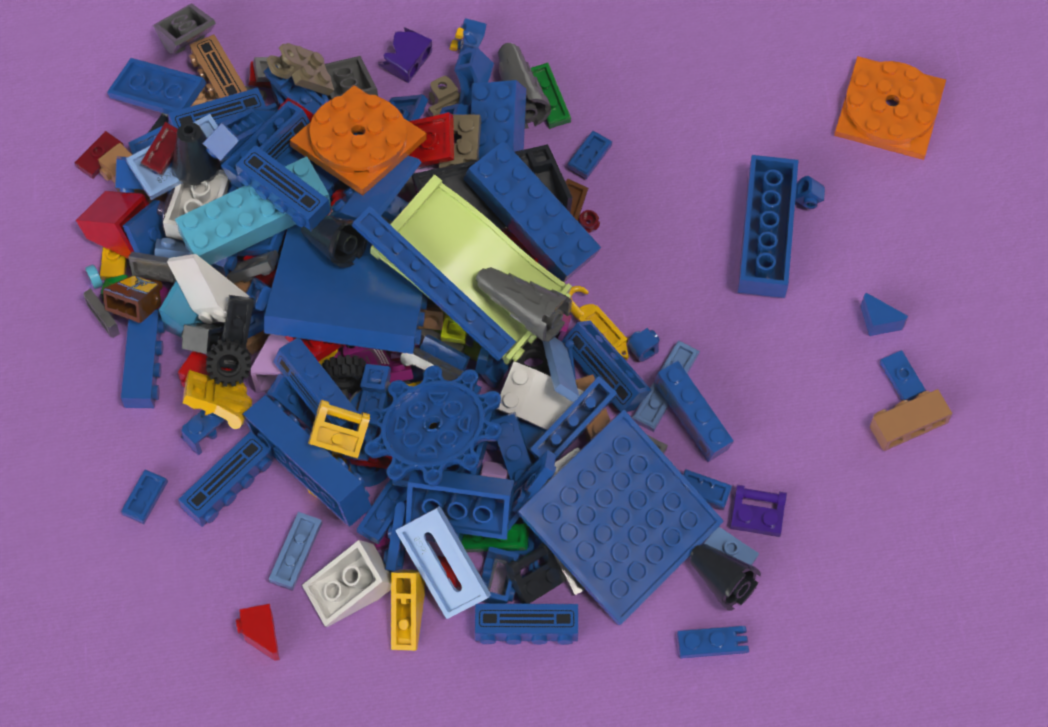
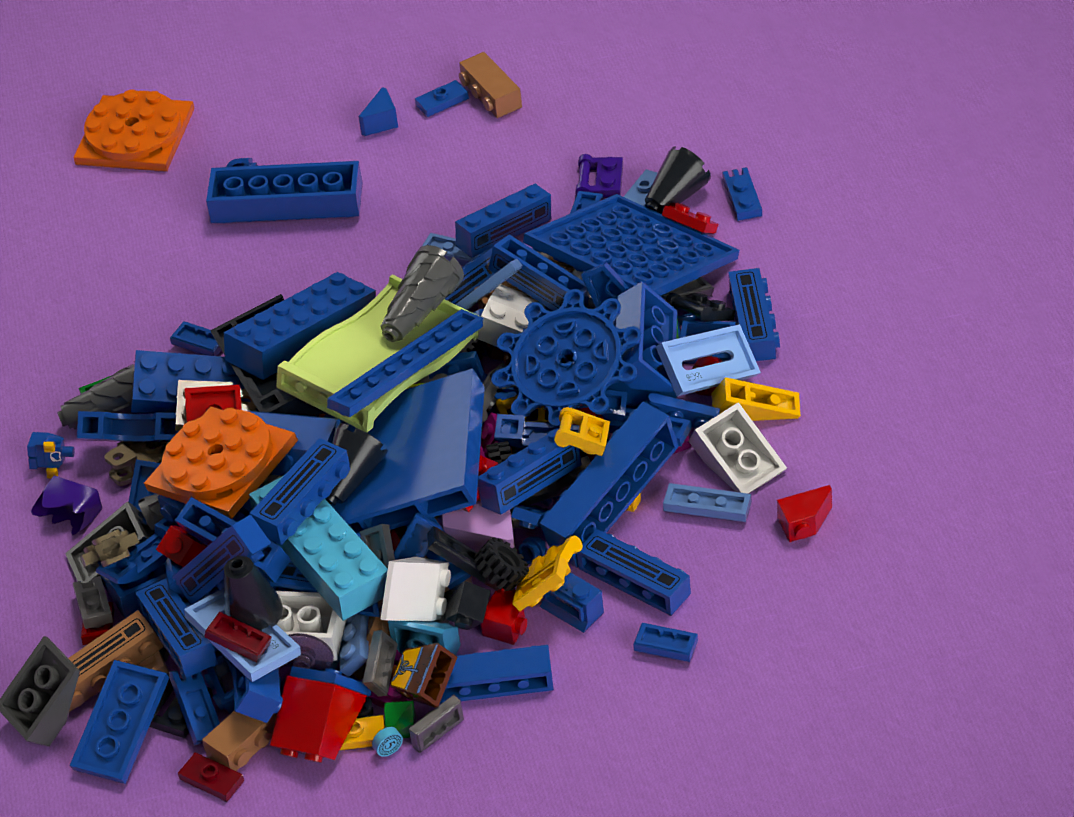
camera: 90 degrees left, 20 degrees down
(674, 584) = (698, 221): none -> red plate

